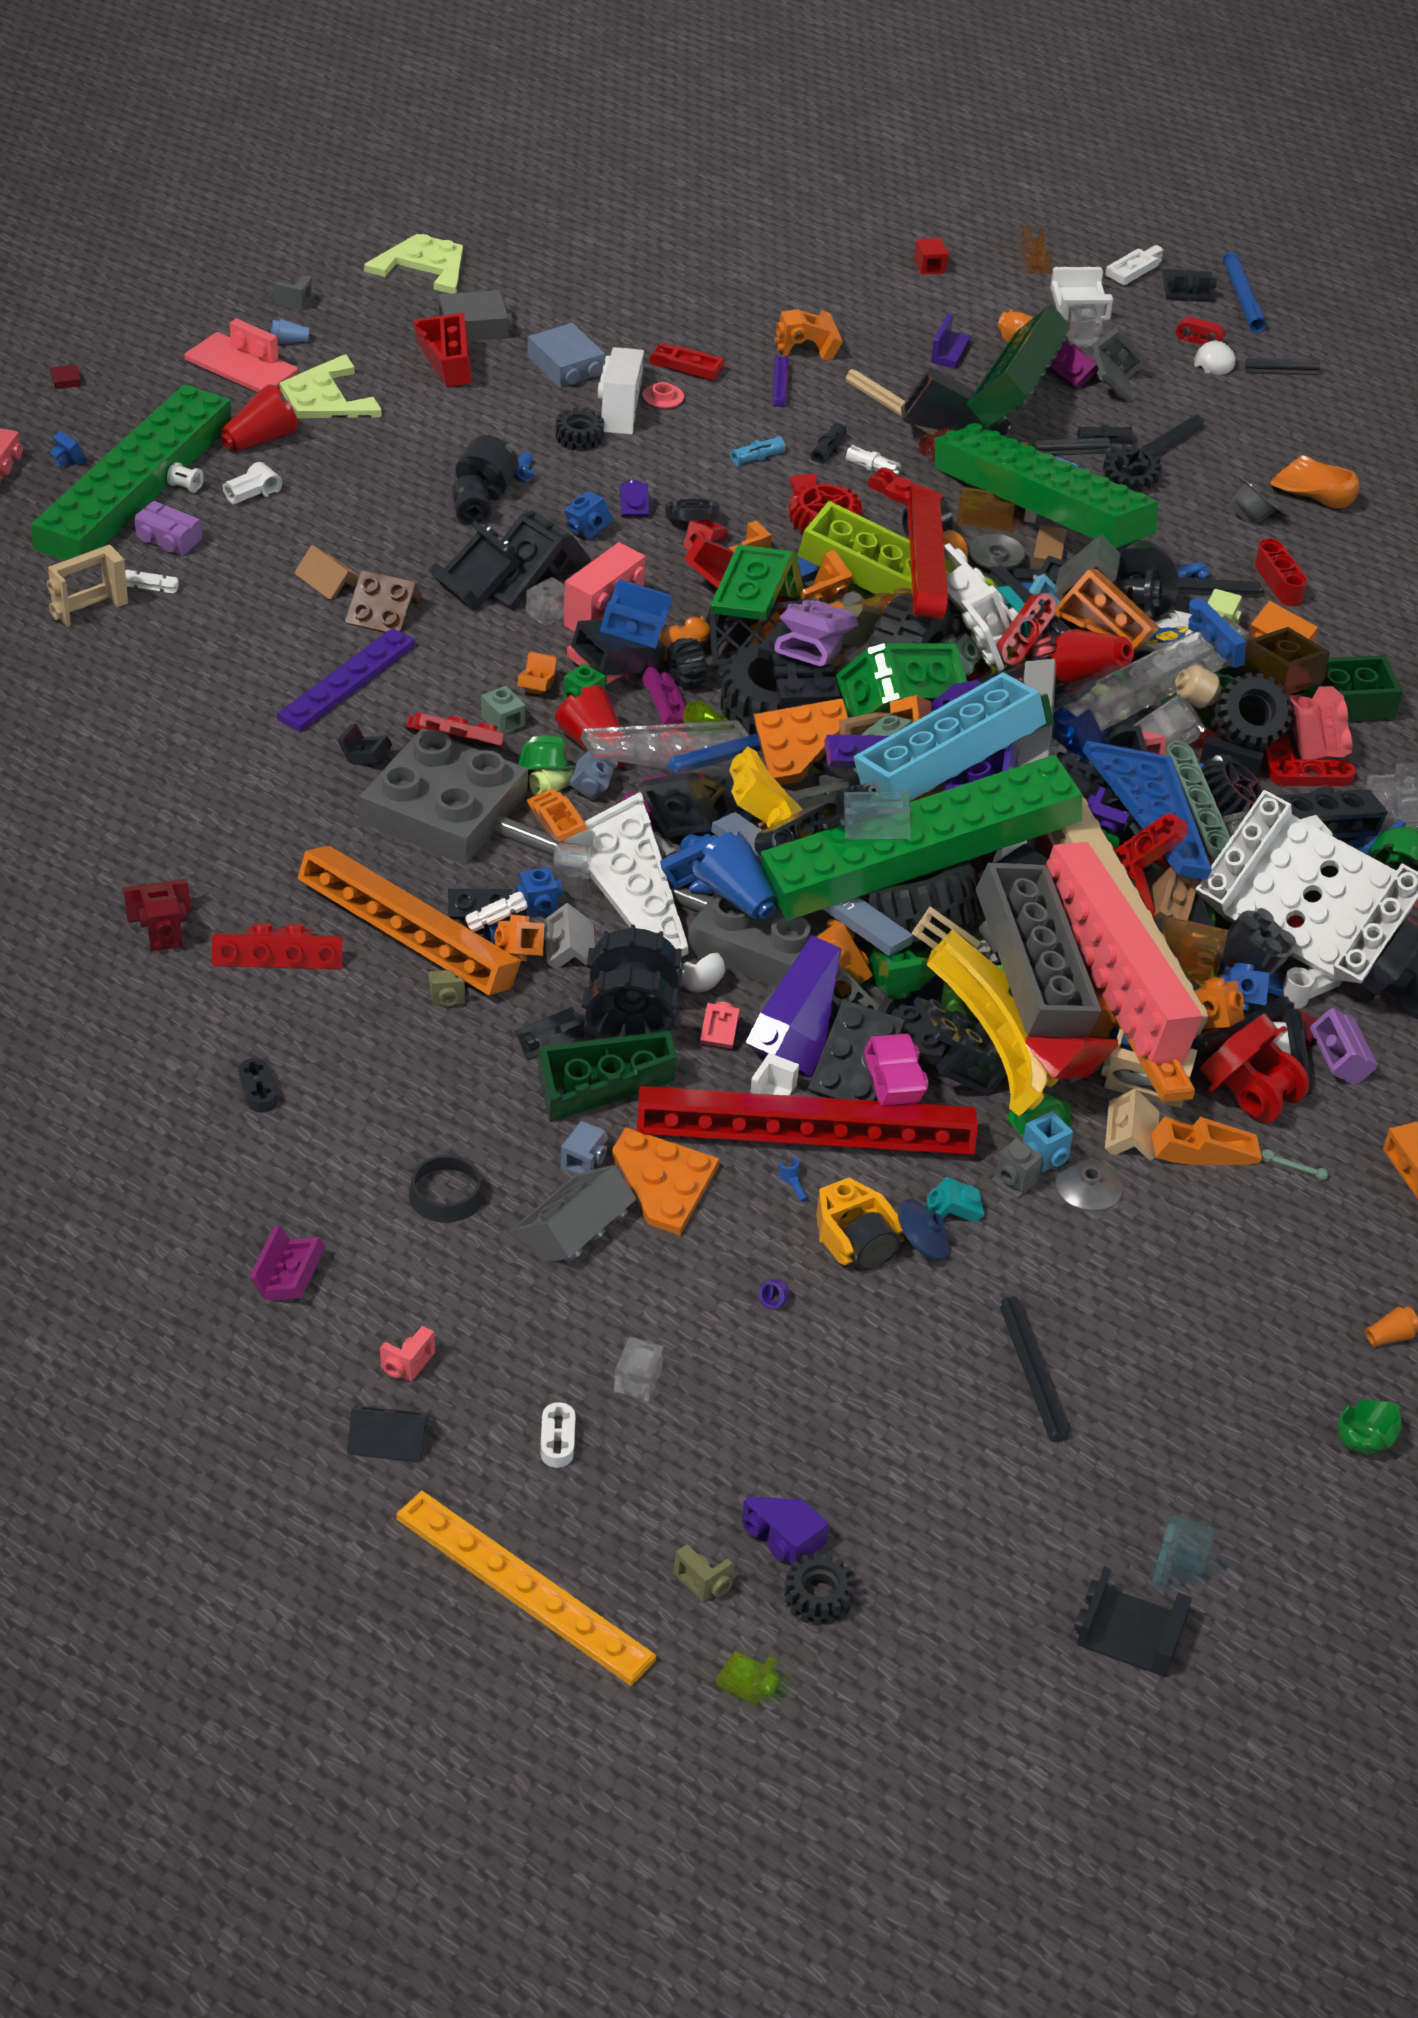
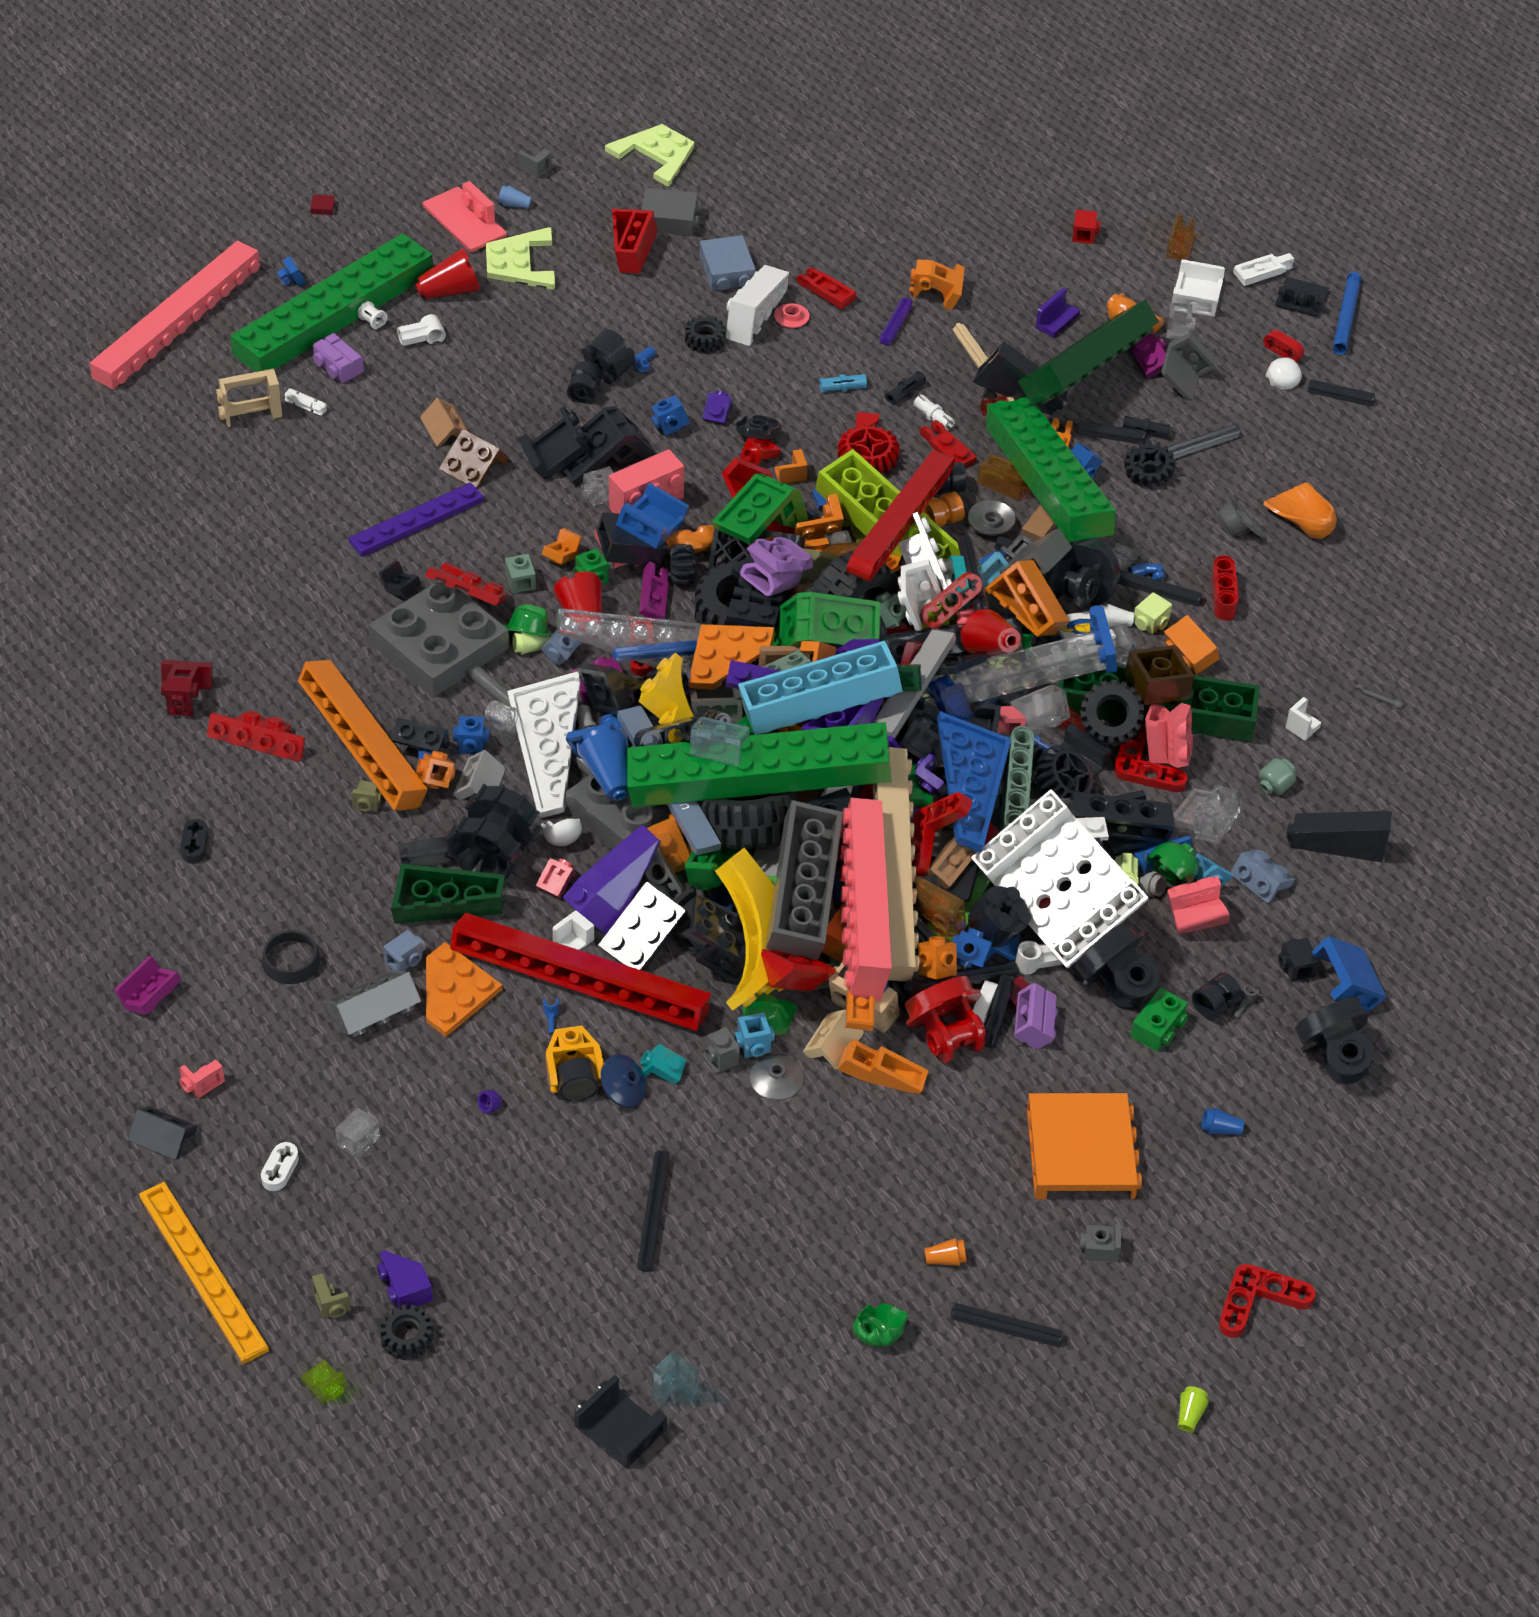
camera: 20 degrees right, 5 degrees up
(496, 911) = (425, 745): white axle -> none
(556, 815) = (510, 674): orange slope -> none
(700, 712) = (671, 611): clear neon green cone -> none
(895, 1069) = (658, 948): dark pink brick -> none
(924, 922) = (764, 865): tan tile -> none
(1198, 686) = (1073, 680): tan head -> none
(1321, 1173) = (930, 1090): sand green hinge -> none

